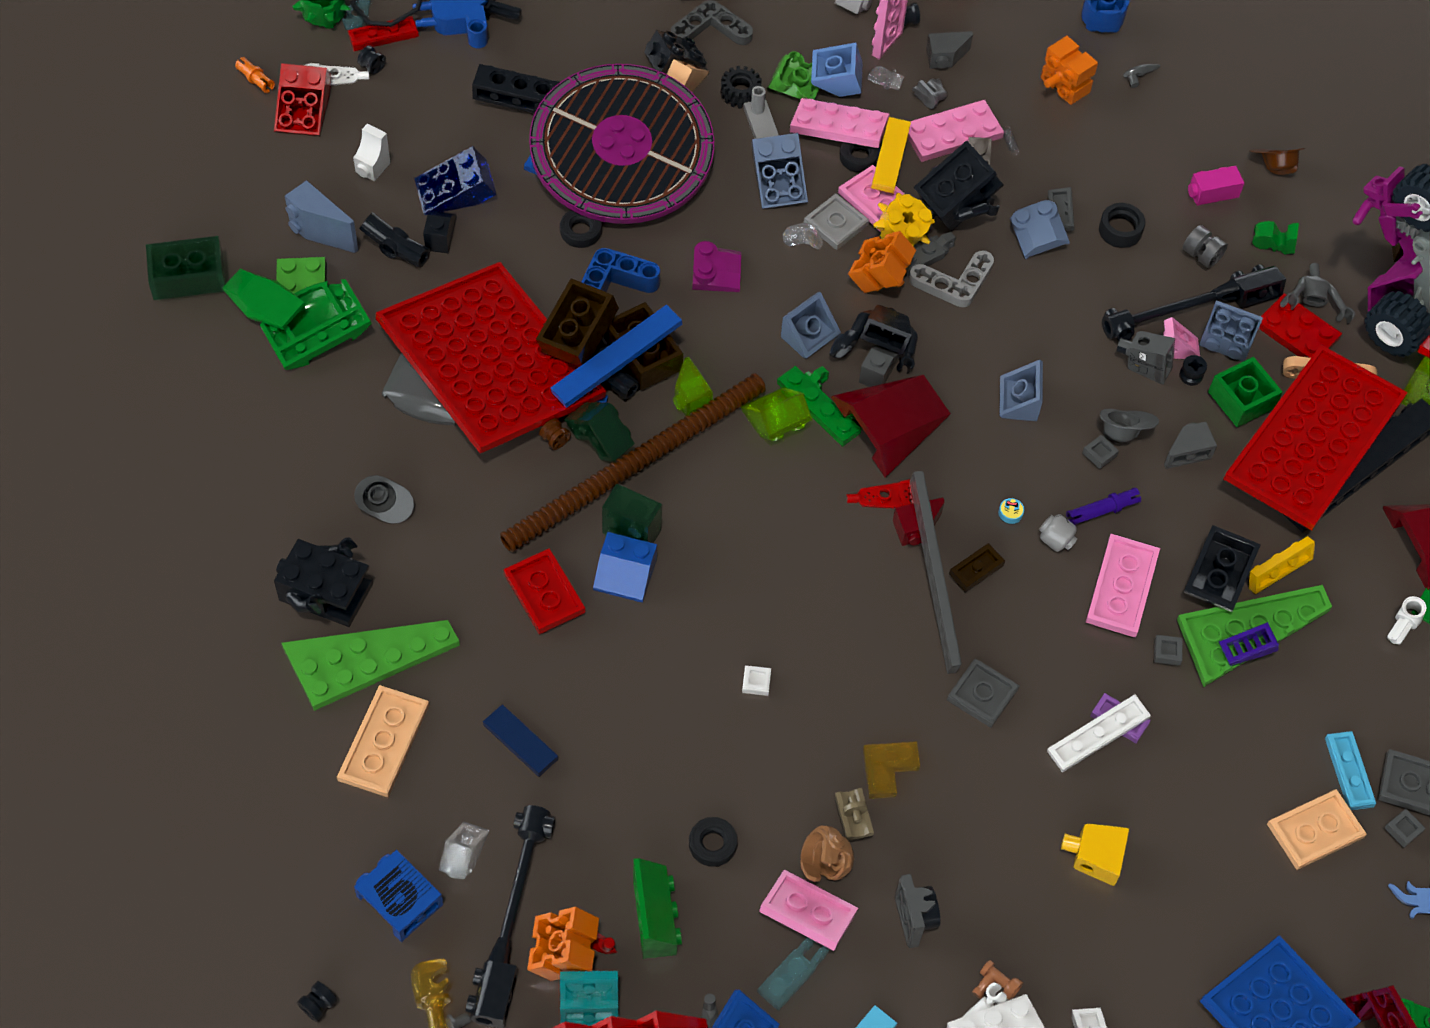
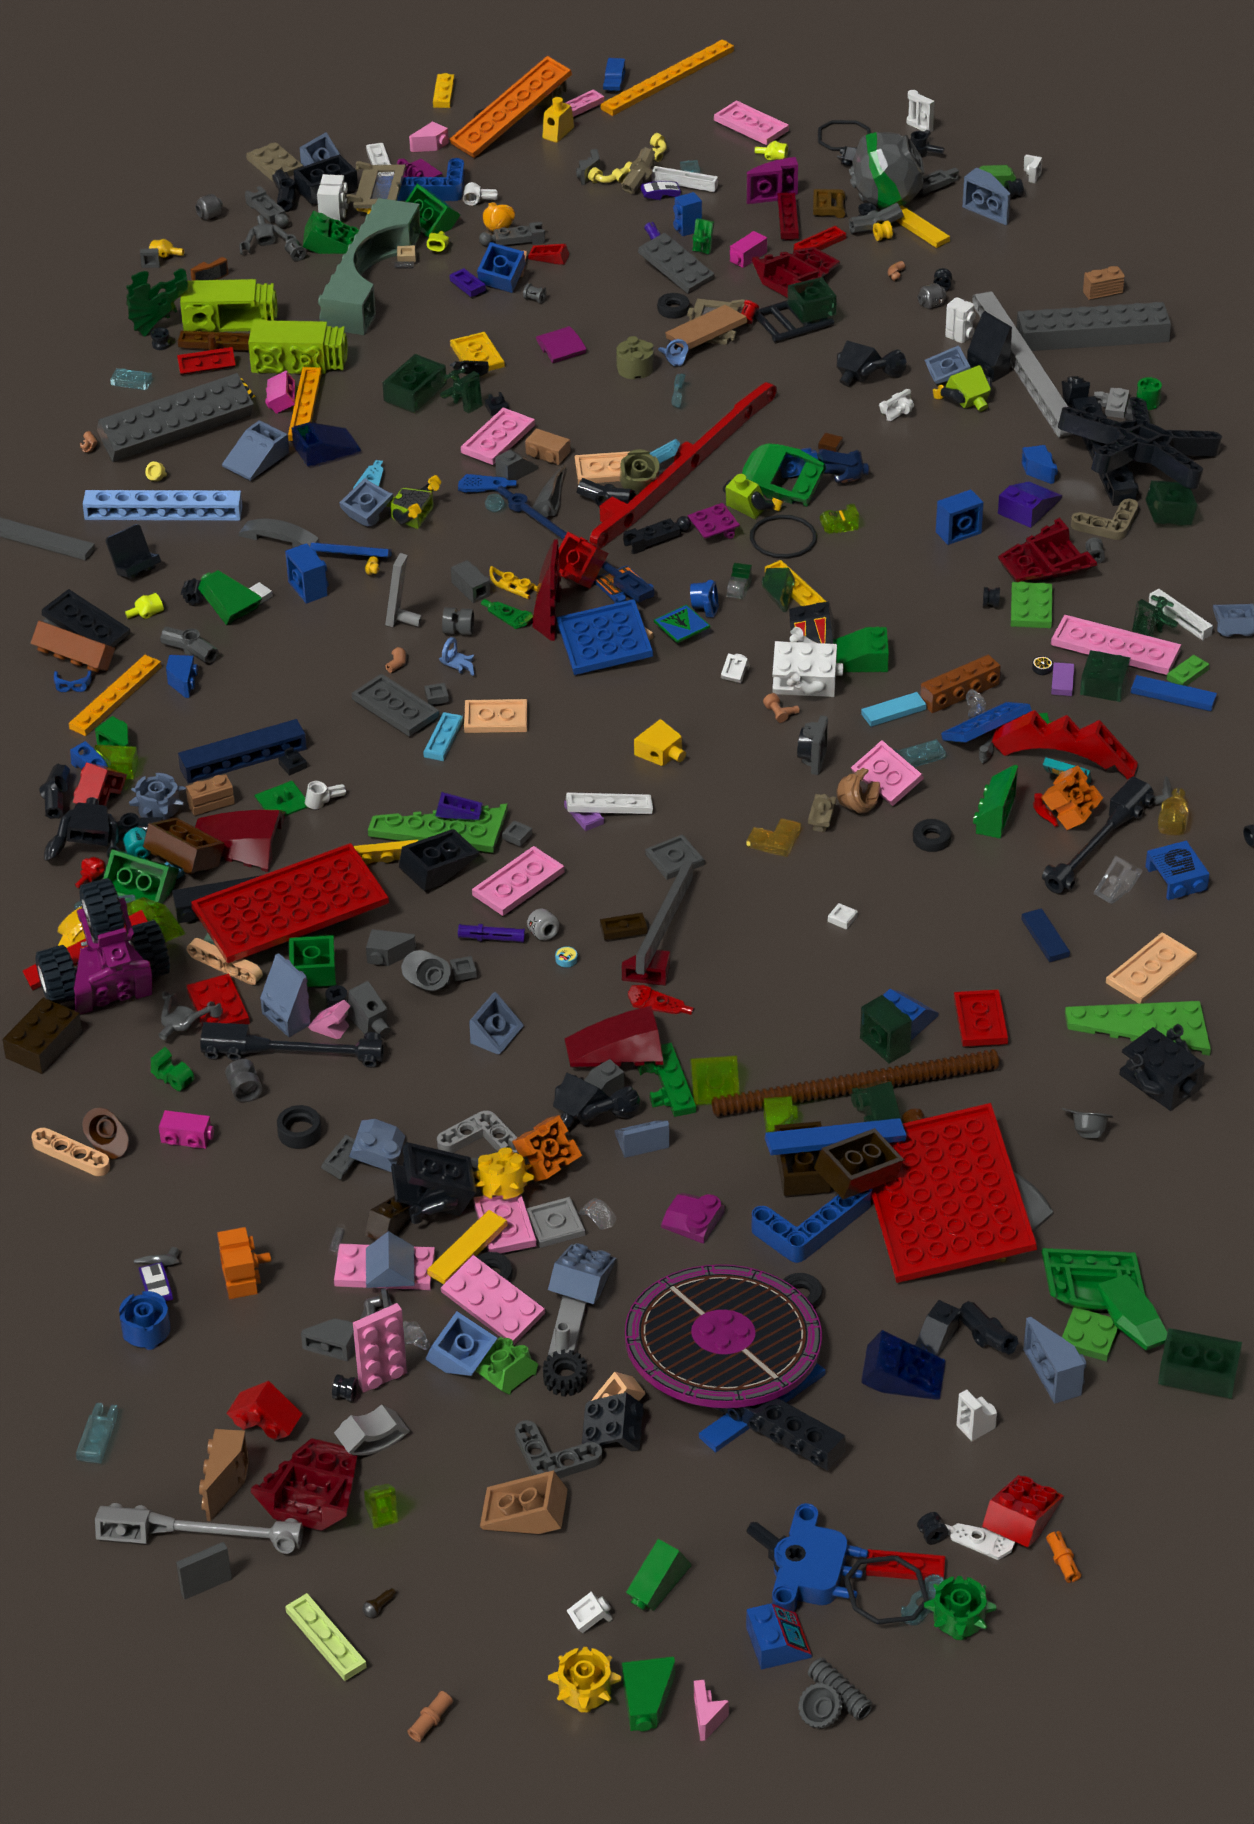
camera: 150 degrees left, 15 degrees down
(943, 115) = (389, 1262): none -> sand blue slope
(1127, 48) = (155, 1280): none -> slope
(1295, 140) = (73, 1148): none -> light nougat beam

